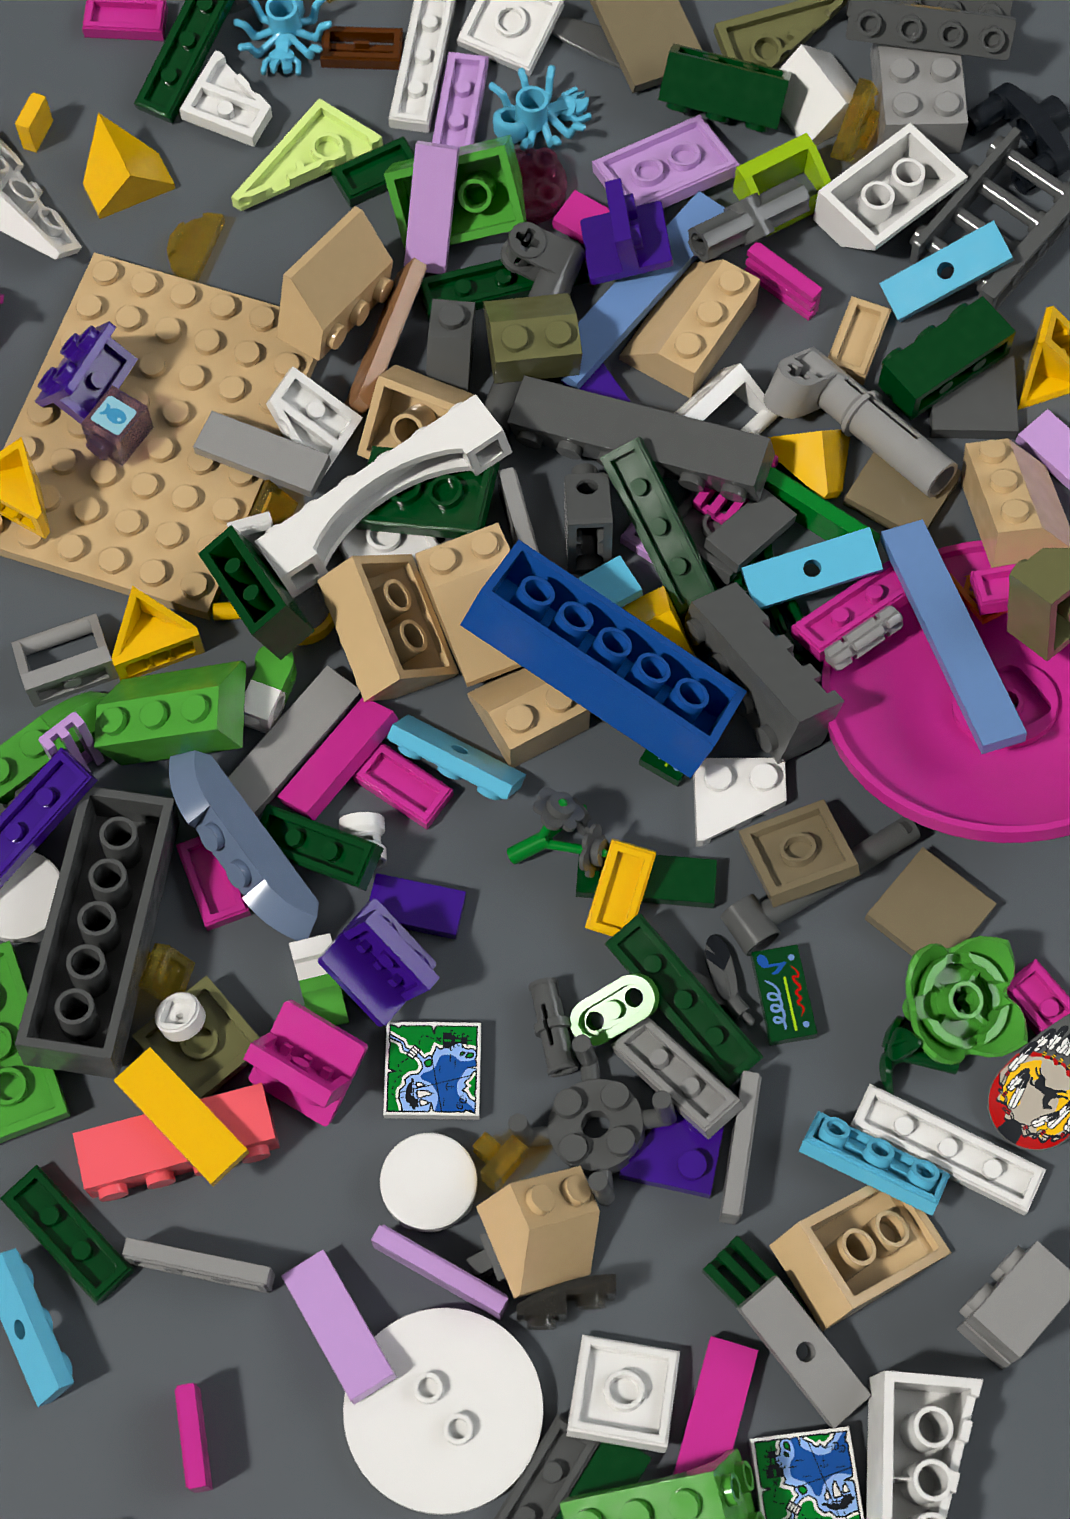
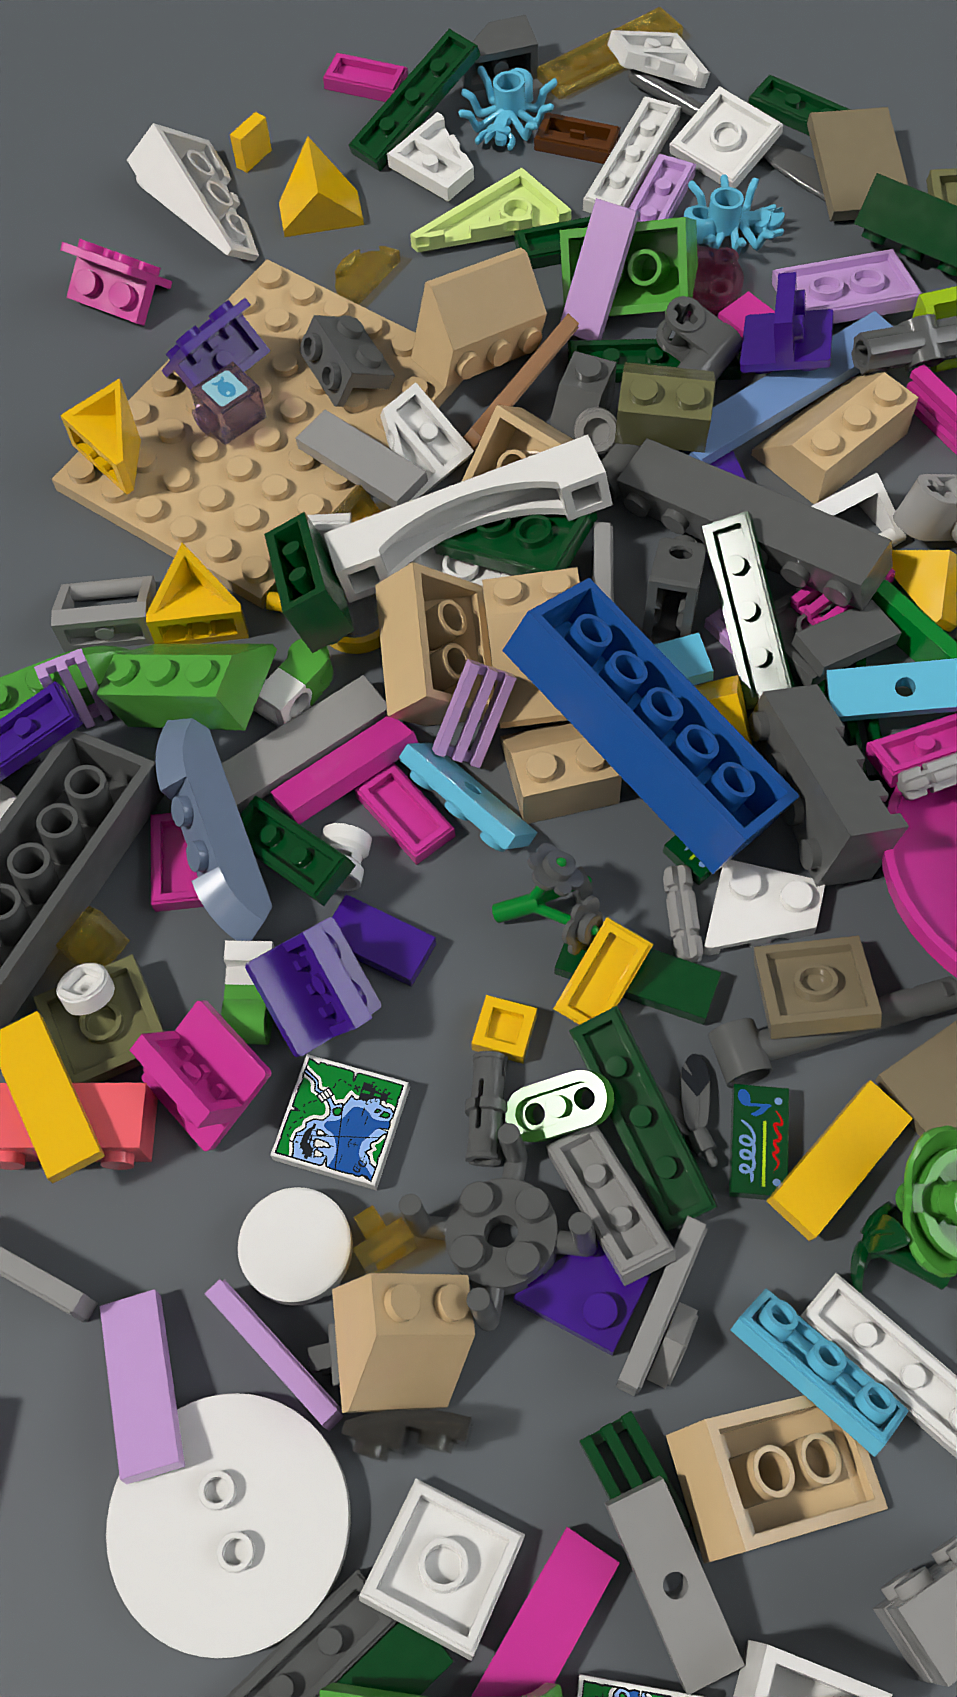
camera: 20 degrees right, 5 degrees down
(212, 351) = (343, 357): none -> dark grey bracket
(450, 681) = (491, 718): none -> lavender tile
(472, 372) = (599, 426): none -> light grey tile
(547, 955) = (504, 1028): none -> yellow tile
(671, 816) = (683, 913): none -> light grey axle
(757, 1176) = (673, 1345): none -> light grey tile
(851, 992) = (839, 1160): none -> yellow tile

